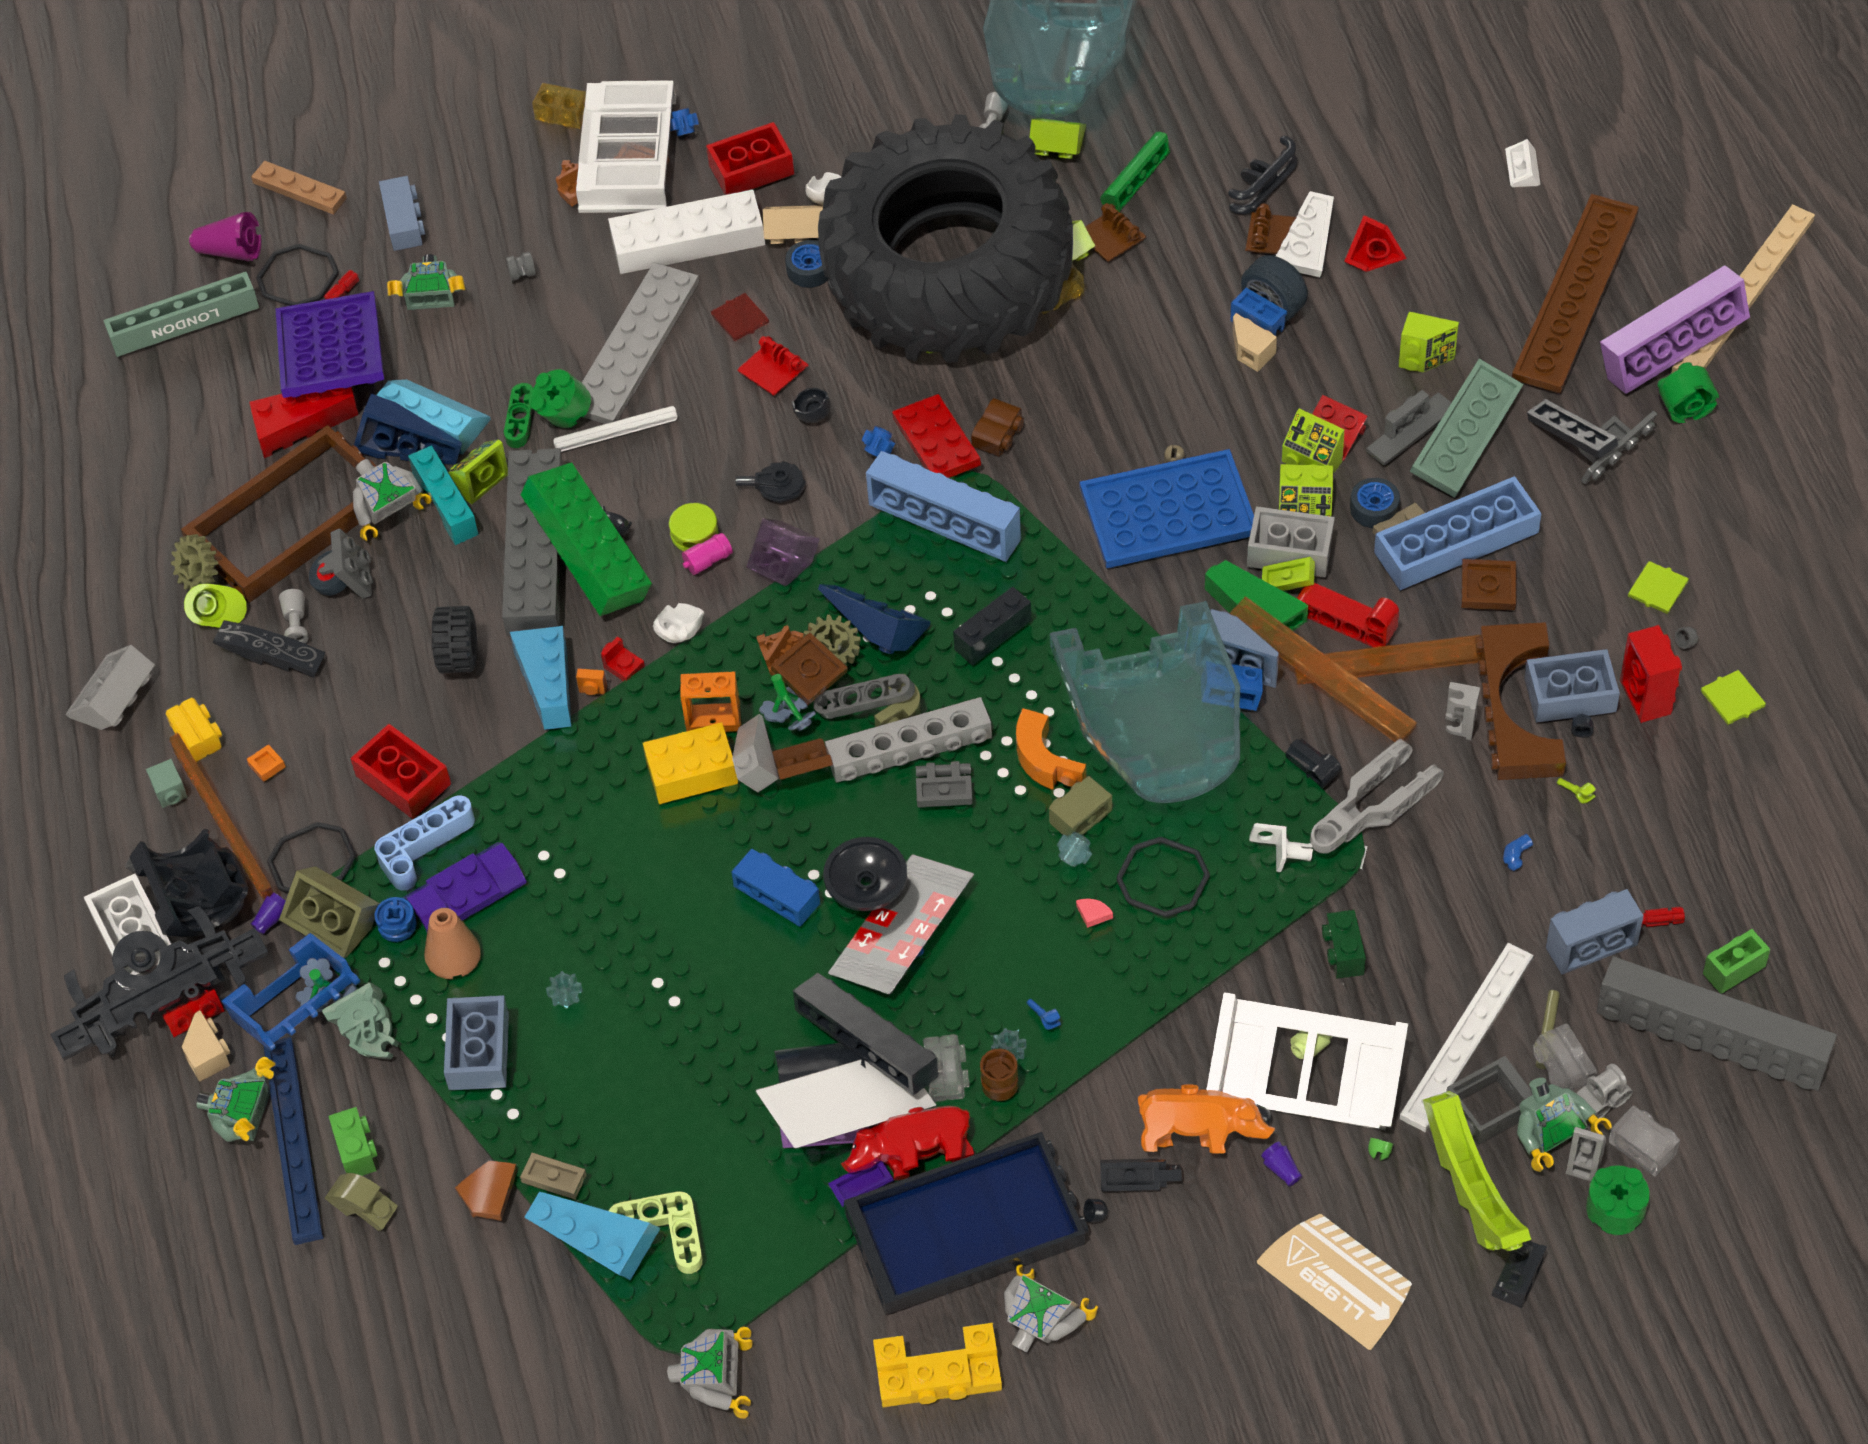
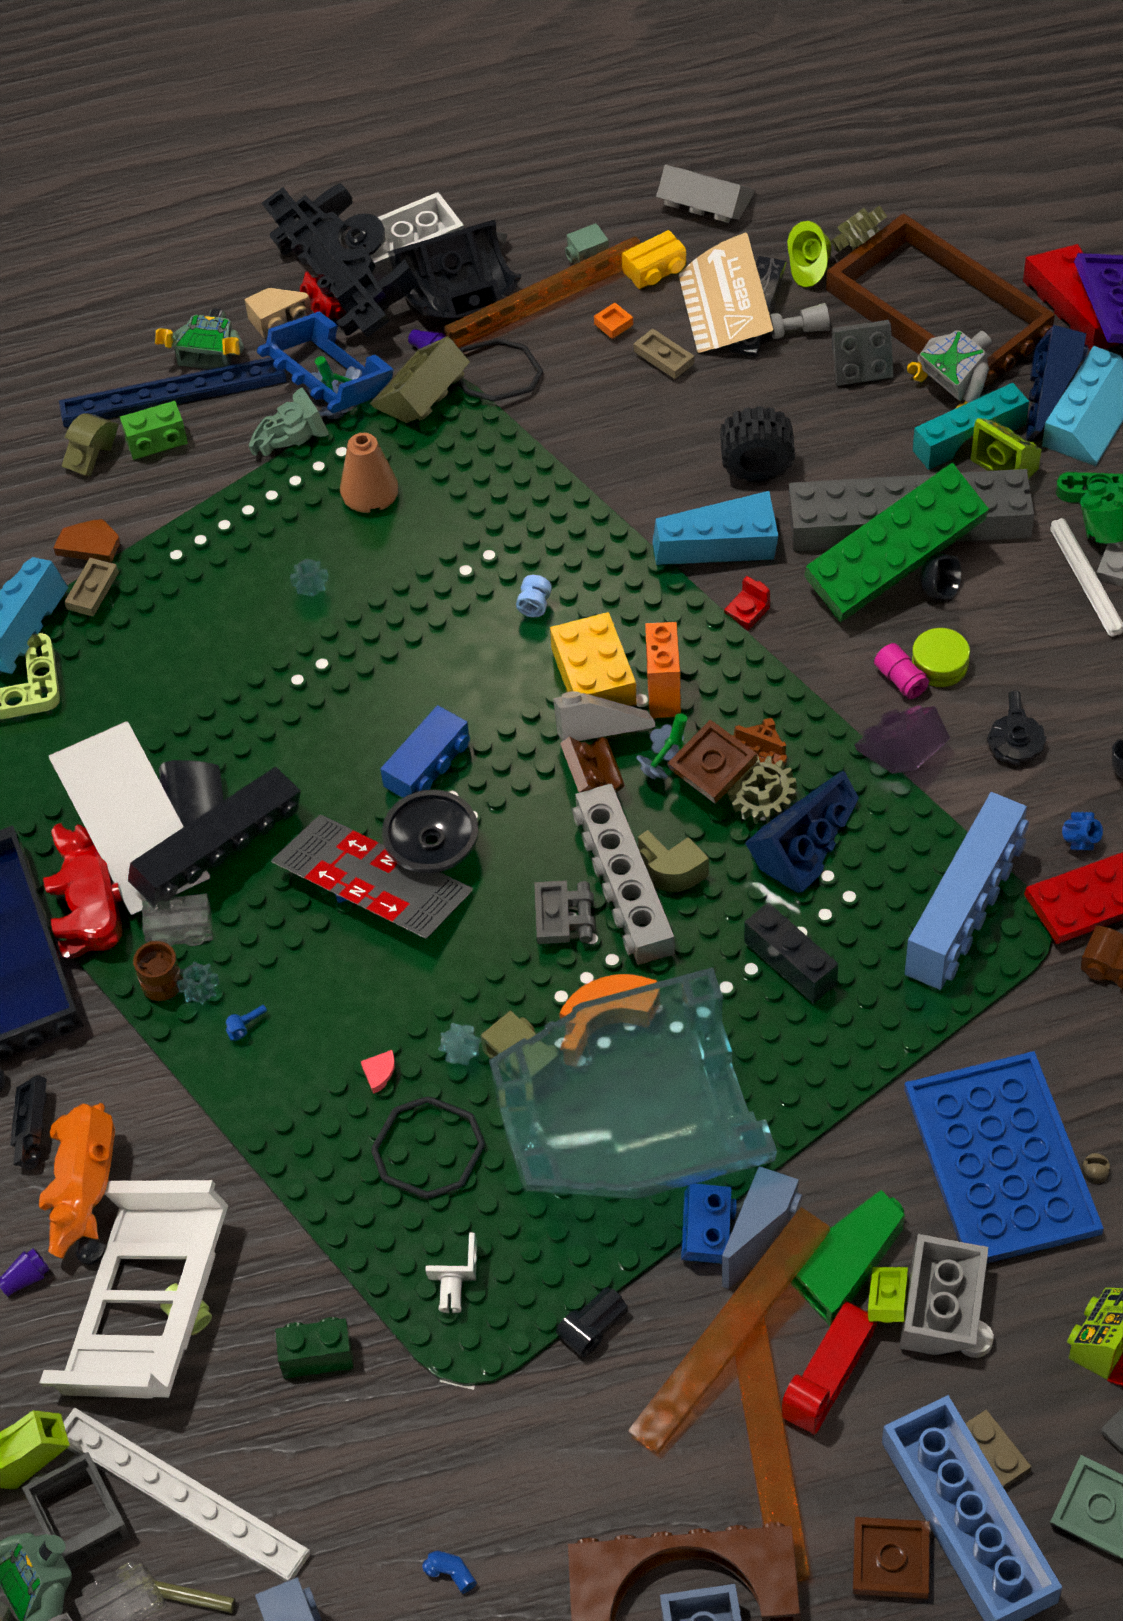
camera: 90 degrees right, 0 degrees up
(254, 671) = (725, 295): none -> tan sticker
(315, 723) = (663, 353): none -> dark tan plate
(395, 918) = (409, 434): blue wheel -> none
(400, 771) = (592, 422): red brick -> none
(452, 818) = (490, 427): light blue beam -> none
(468, 884) = (443, 486): dark purple piece -> none
(476, 1042) = (245, 507): sand blue brick -> none
(591, 681) = (714, 577): orange plate -> none
(605, 811) = (533, 598): none -> light blue wheel
(678, 623) = (795, 647): white hair -> none
(860, 1182) = (44, 849): dark purple tile -> none
(863, 692) = (675, 819): dark grey beam -> none
(1306, 489) = (1031, 1323): lime slope -> none
(1346, 821) = (501, 1358): light grey piece -> none
(1364, 500) = (1016, 1398): wheel -> none
(1377, 1145) = (25, 1379): bright green hinge -> none
(1462, 708) = (660, 1506): light grey hinge -> none

